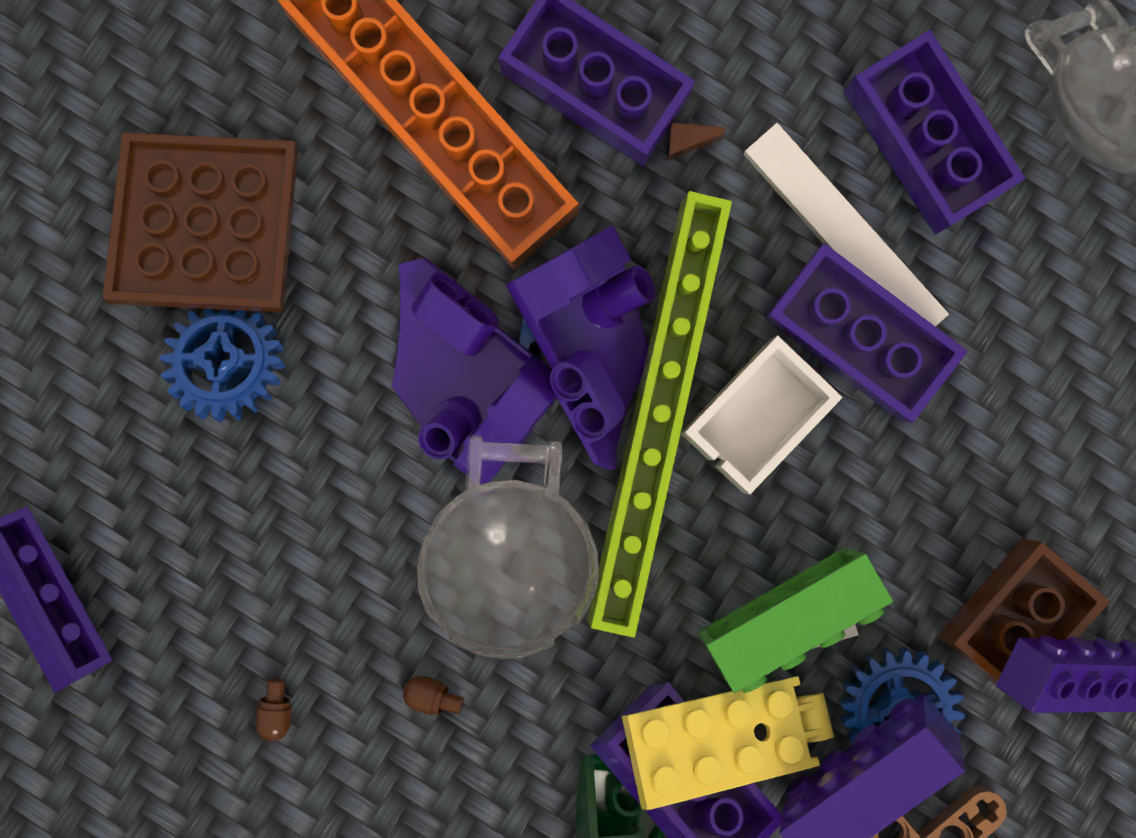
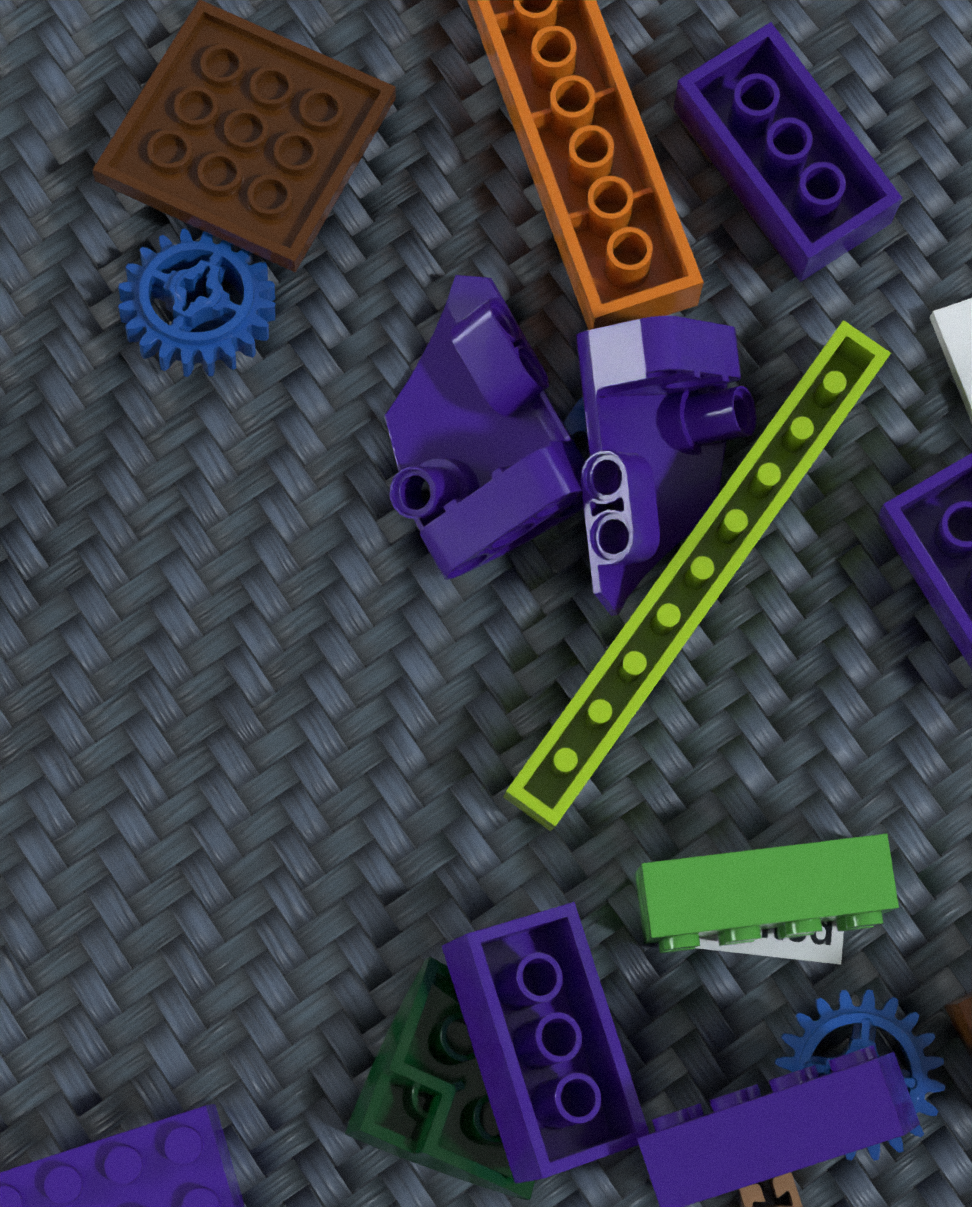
camera: 30 degrees right, 10 degrees down
(273, 712) = (66, 746): reddish brown cylinder -> none
(430, 696) = (268, 809): reddish brown cylinder -> none
(508, 558) = (440, 661): clear windscreen -> none
(689, 137) = (873, 270): reddish brown piece -> none
(712, 744) = (599, 1001): light yellow hinge -> none
(761, 415) = (824, 626): white piece -> none

